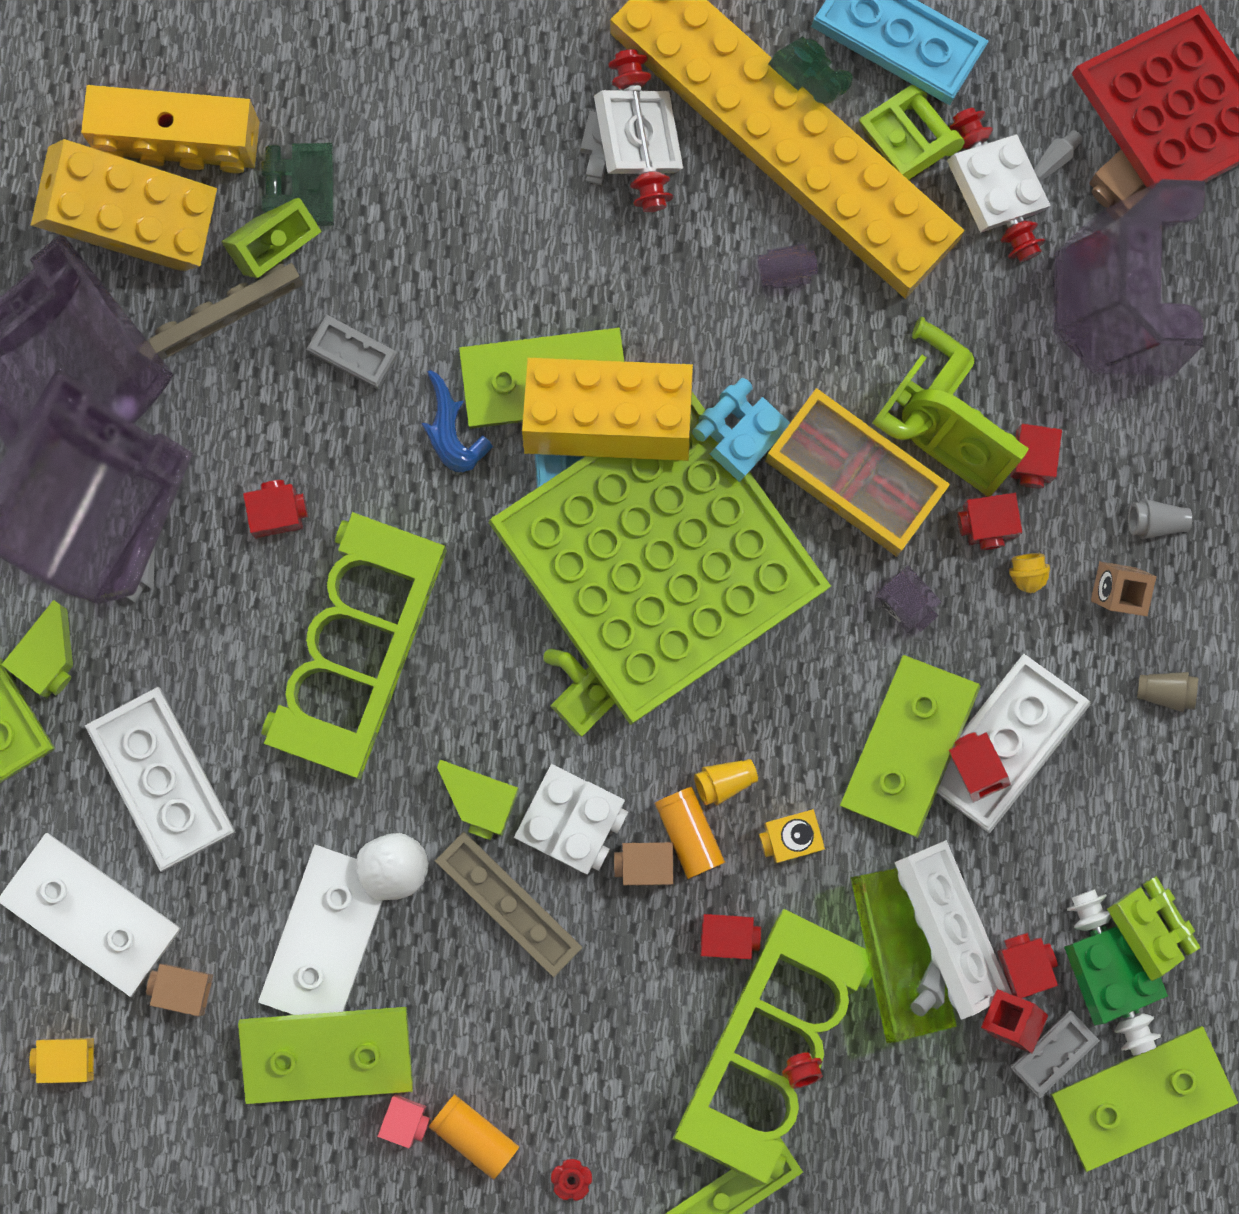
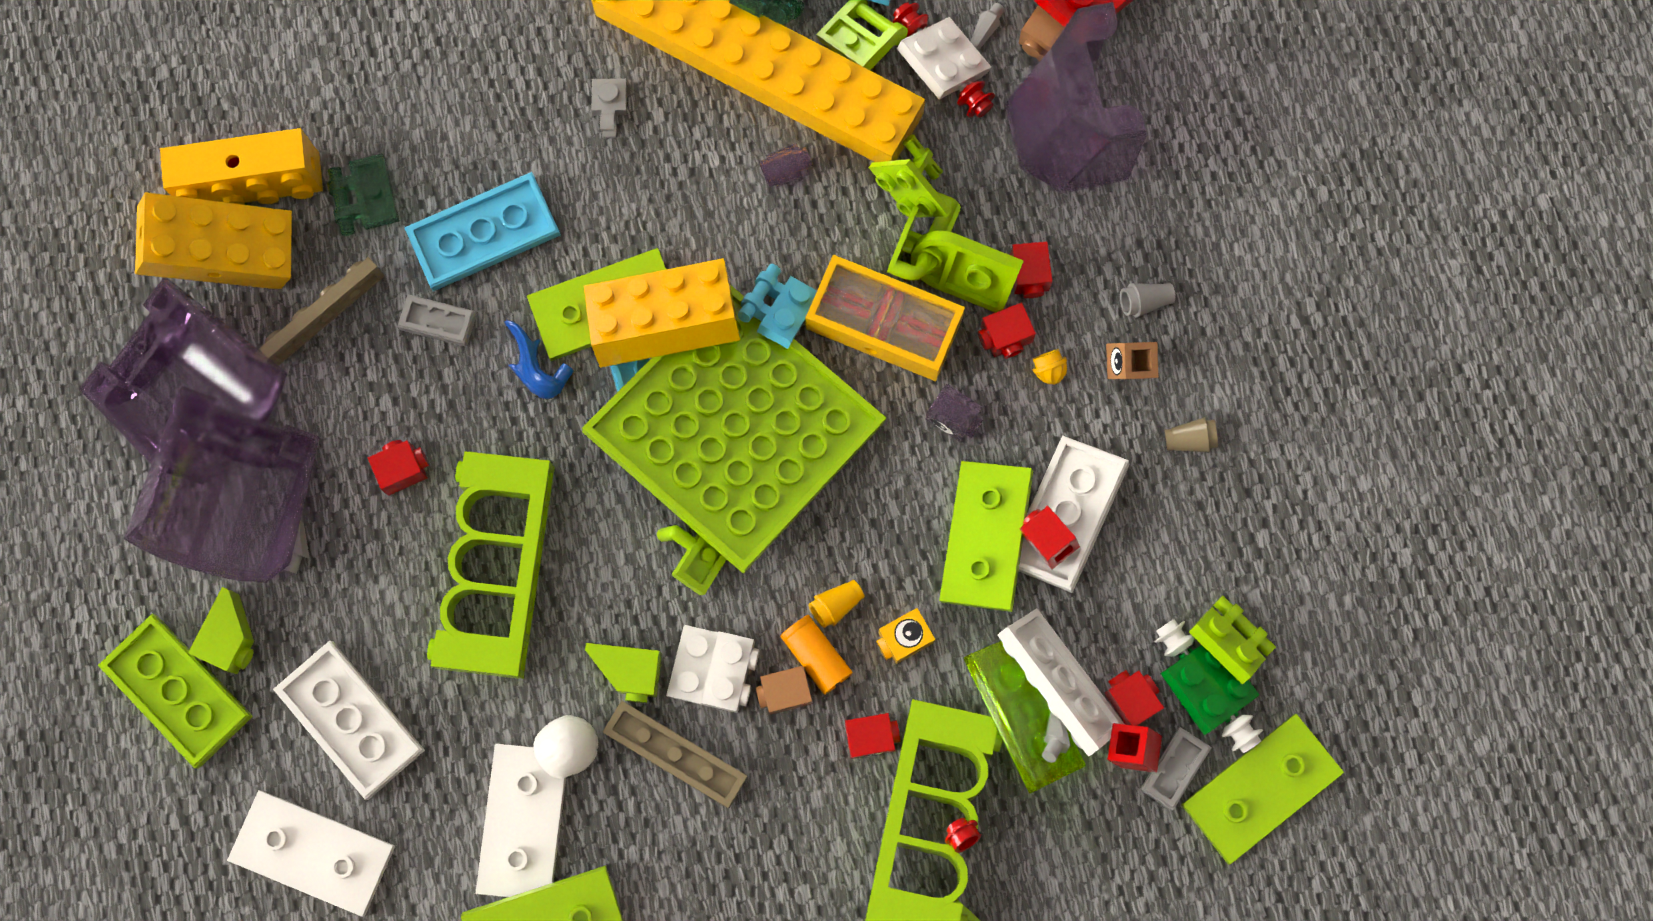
camera: 10 degrees left, 5 degrees down
(179, 989) = (404, 899): medium nougat brick -> none
(271, 238) = (346, 241): lime slope -> none
(425, 260) = (482, 231): none -> medium azure plate
(638, 131) = (636, 84): white plate -> none
(919, 322) = (908, 185): none -> lime plate

